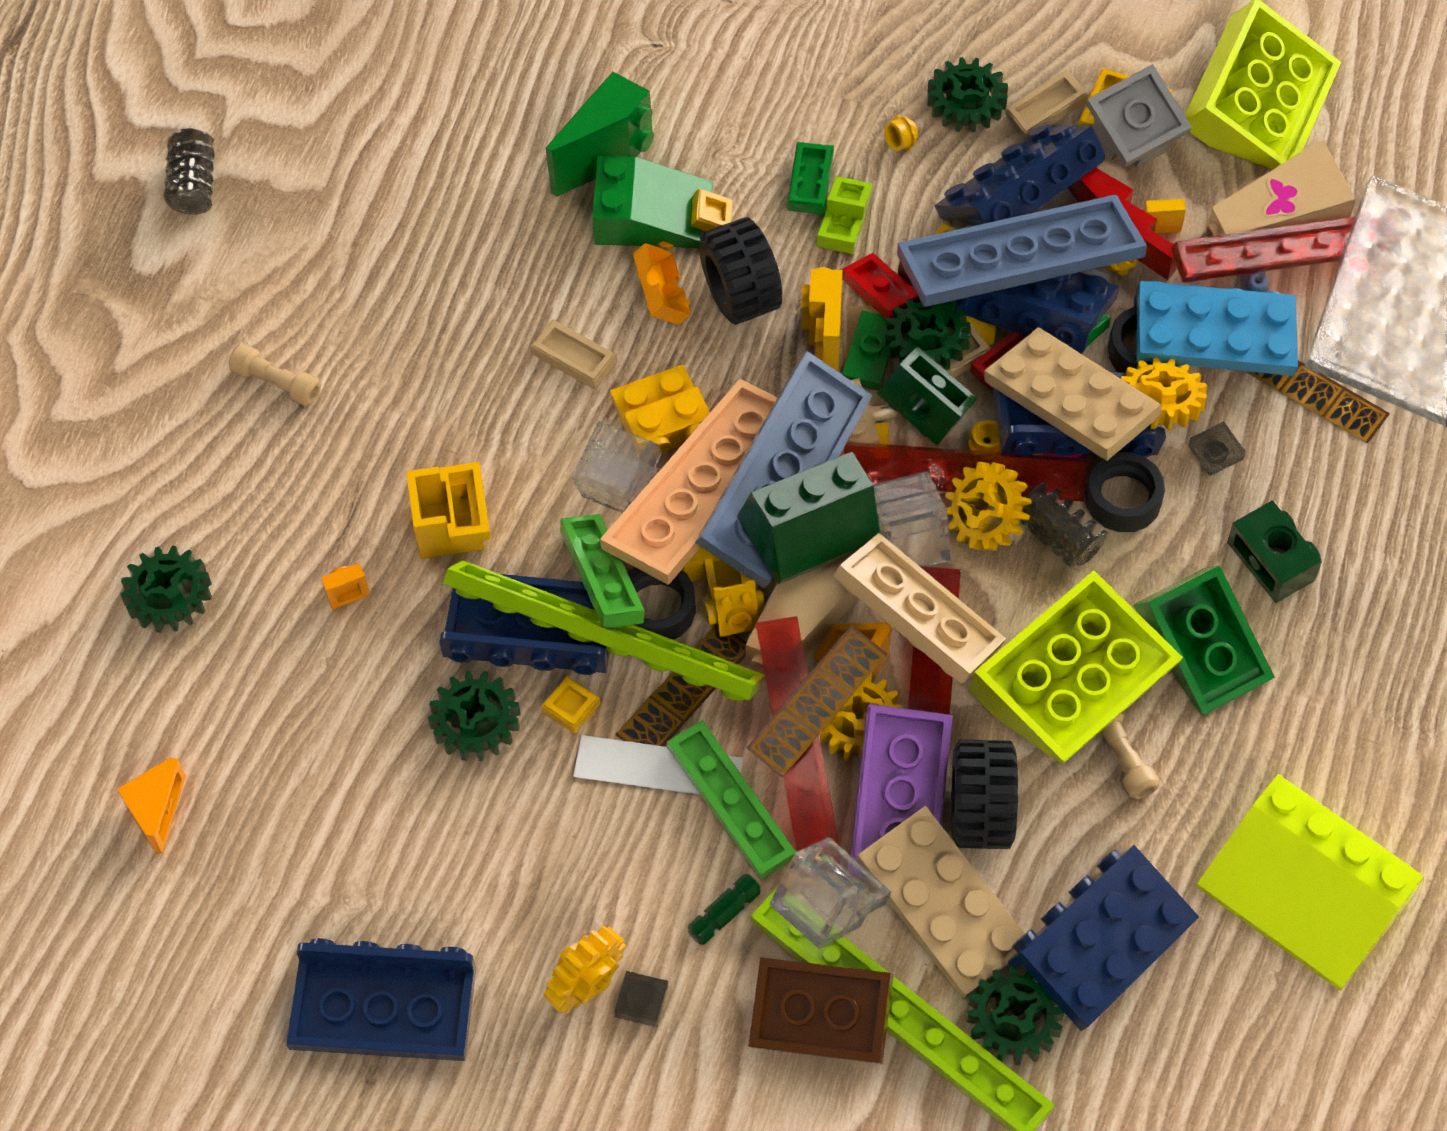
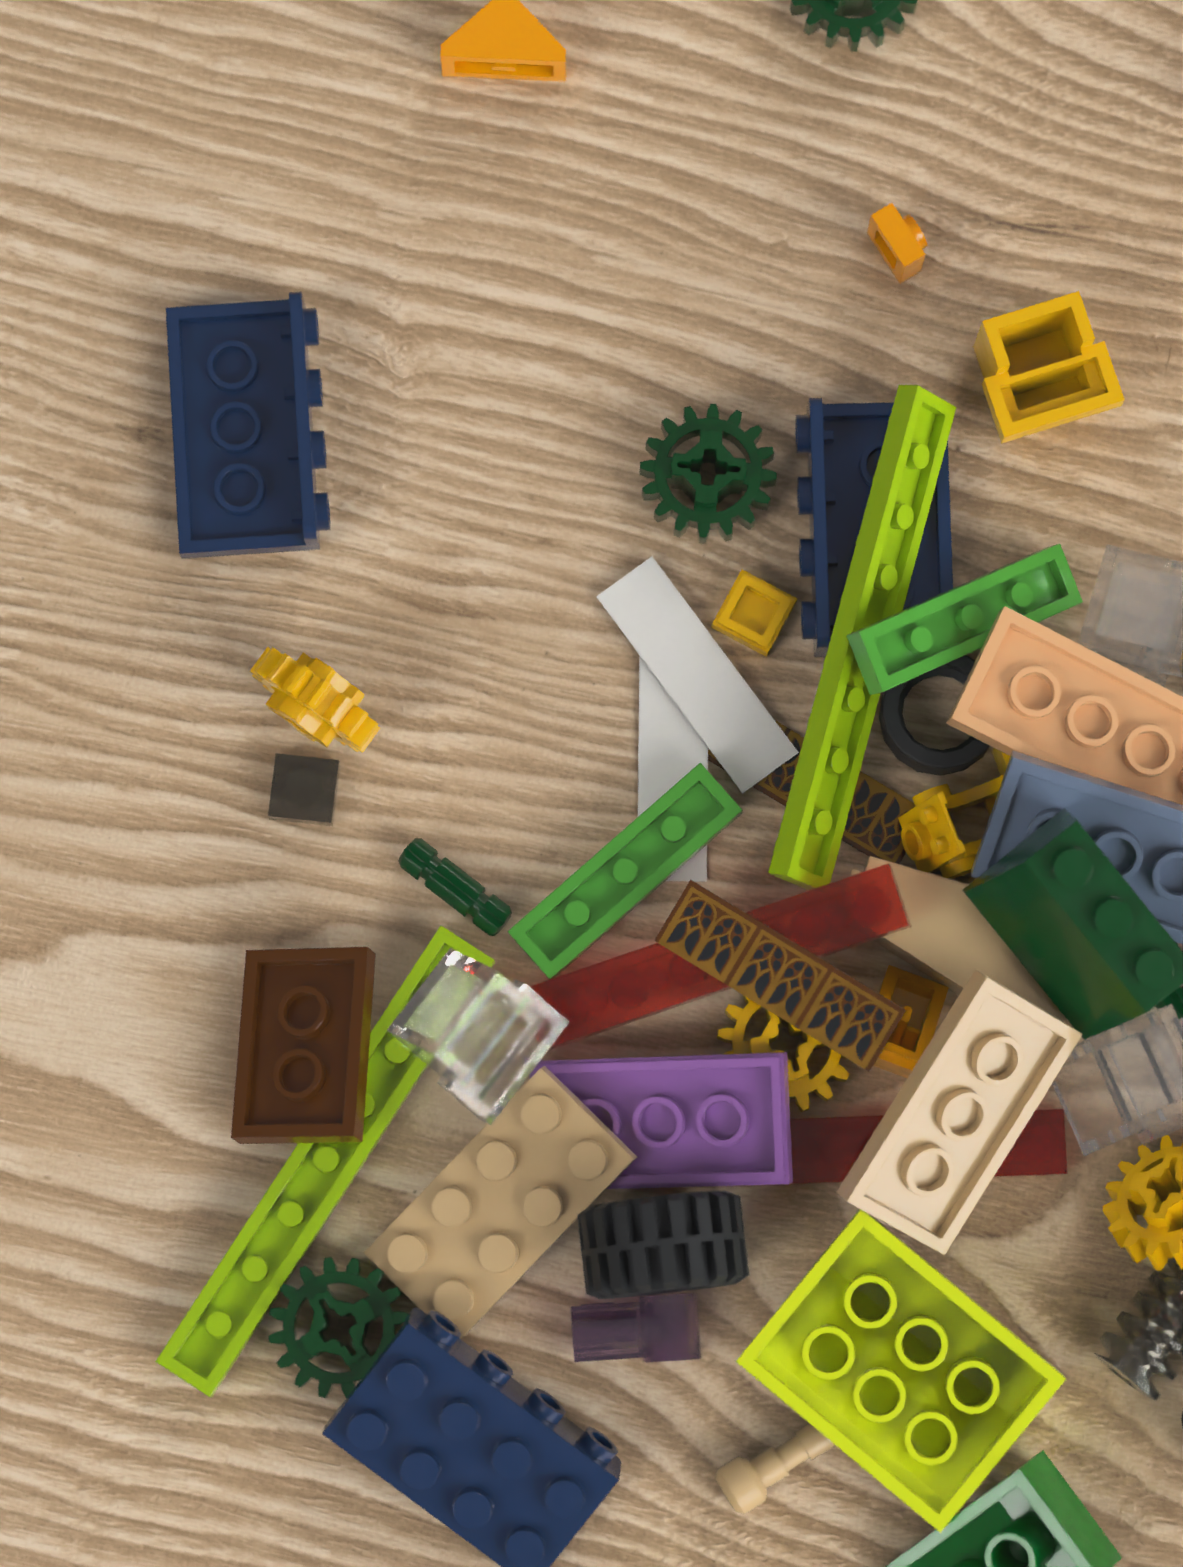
camera: 80 degrees right, 20 degrees up
(604, 744) = (697, 674): none -> white sticker
(1035, 832) = (652, 1329): none -> clear purple piece

